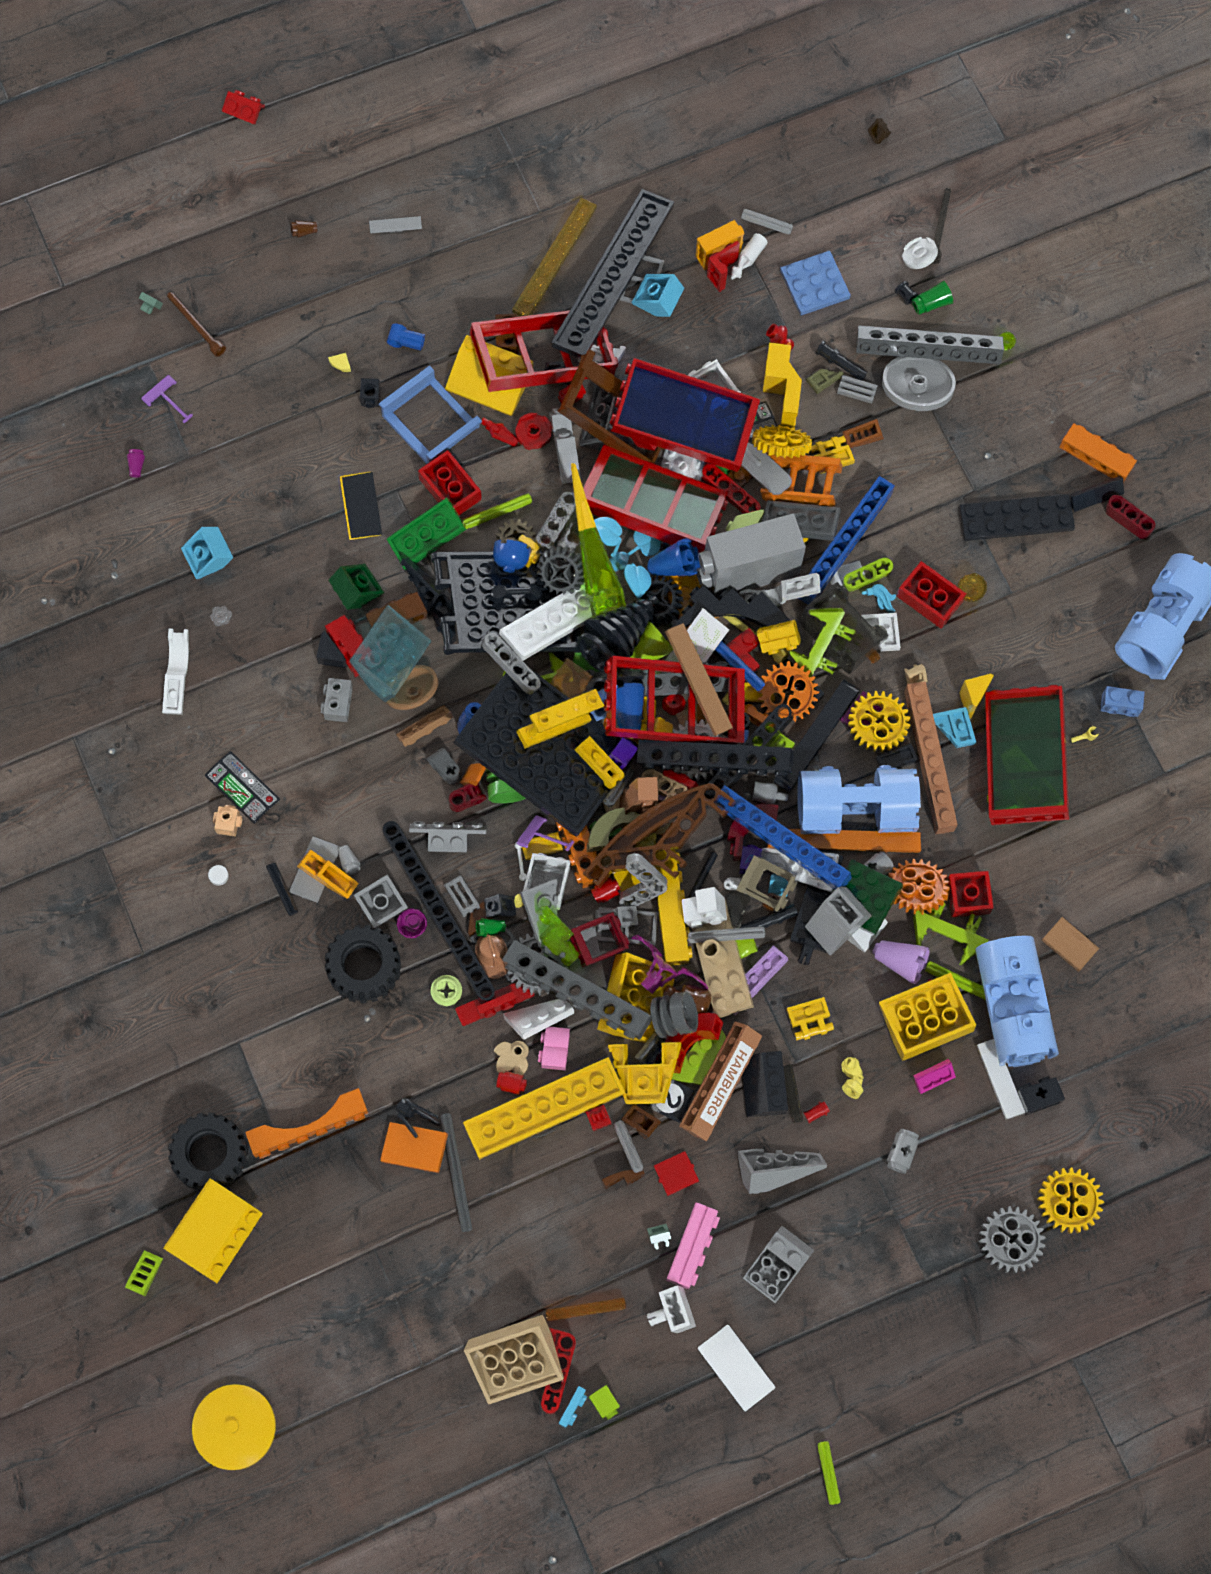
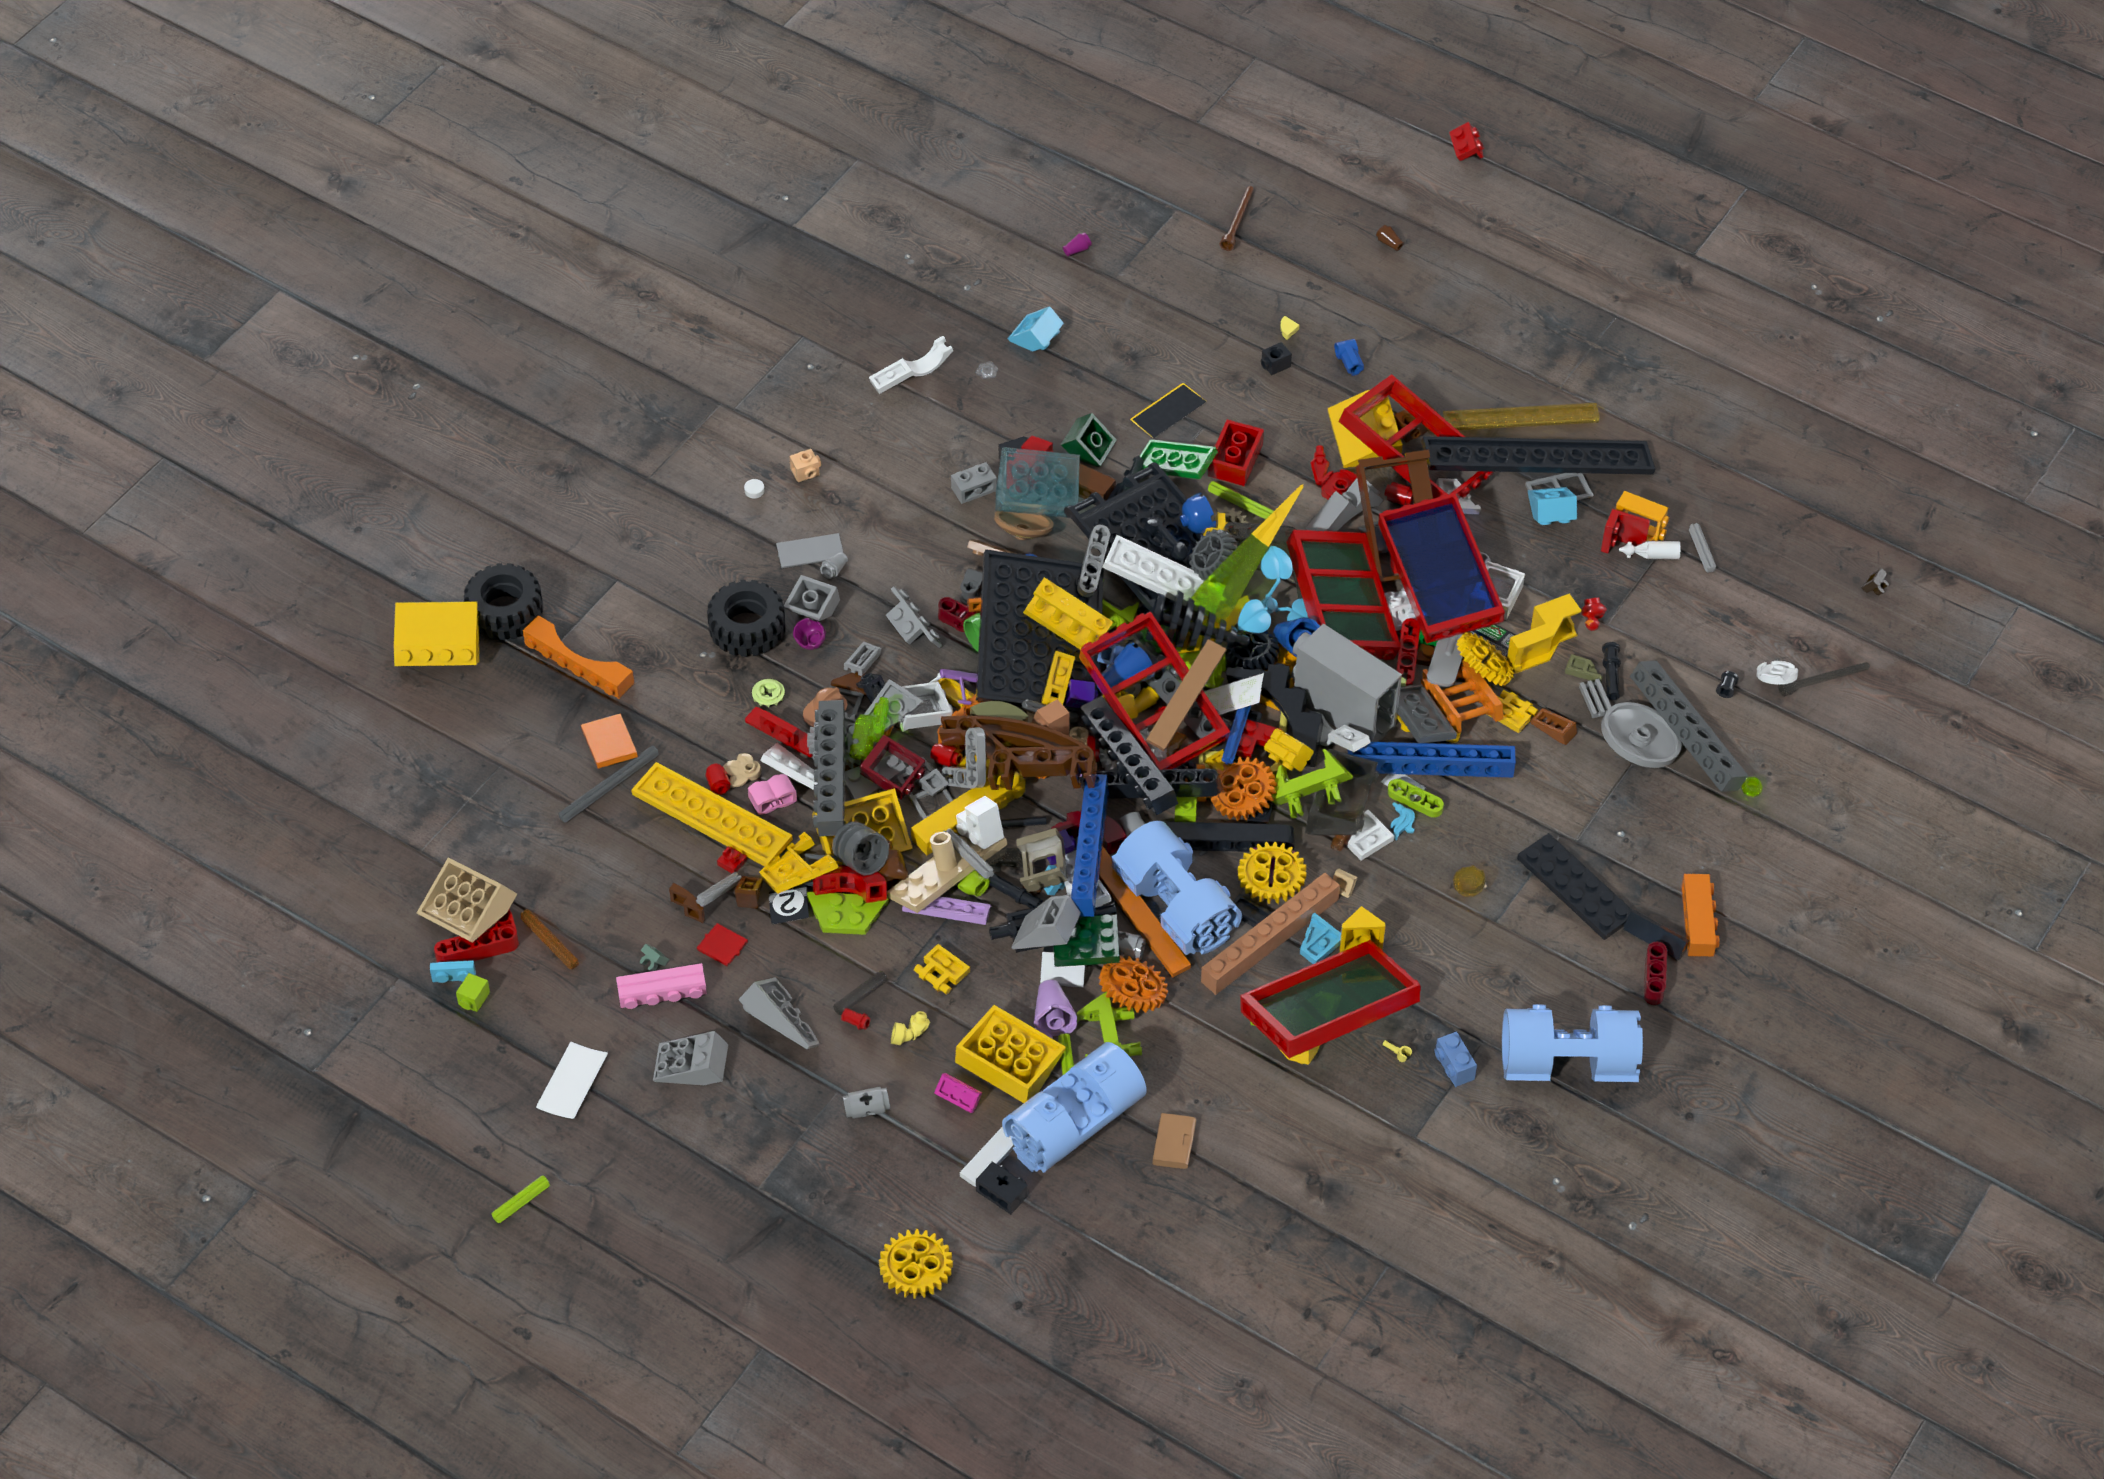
camera: 60 degrees right, 20 degrees down
(147, 1283) = (360, 624): lime slope -> none
(149, 303) = (1228, 178): sand green tile -> none
(158, 390) = (1156, 227): medium lavender piece -> none
(233, 1427) = (280, 747): yellow dish -> none
(242, 787) = (846, 464): sticker -> none
(282, 889) = (773, 537): black axle -> none
(327, 874) = (810, 553): light orange slope -> none
(396, 224) = (1452, 297): light grey piece -> none
(407, 392) = (1298, 382): medium blue piece -> none
(408, 1109) = (639, 719): black plant -> none
(437, 903) = (834, 645): black beam -> none
(489, 927) = (847, 688): green cone -> none
(571, 679) = (1121, 616): clear orange piece -> none
(654, 979) = (886, 823): magenta plant -> none
(675, 1310) = (592, 999): white brick -> none
(720, 1081) = (828, 925): nougat brick -> none
(765, 1085) = (854, 966): black slope -> none
(815, 283) = (1674, 614): medium blue plate -> none
(931, 594) = (1433, 851): red brick -> none
(933, 298) = (1739, 706): green plant -> none
(970, 894) = (1158, 1028): red brick -> none
(1000, 1253) = (863, 1237): light grey gear -> none

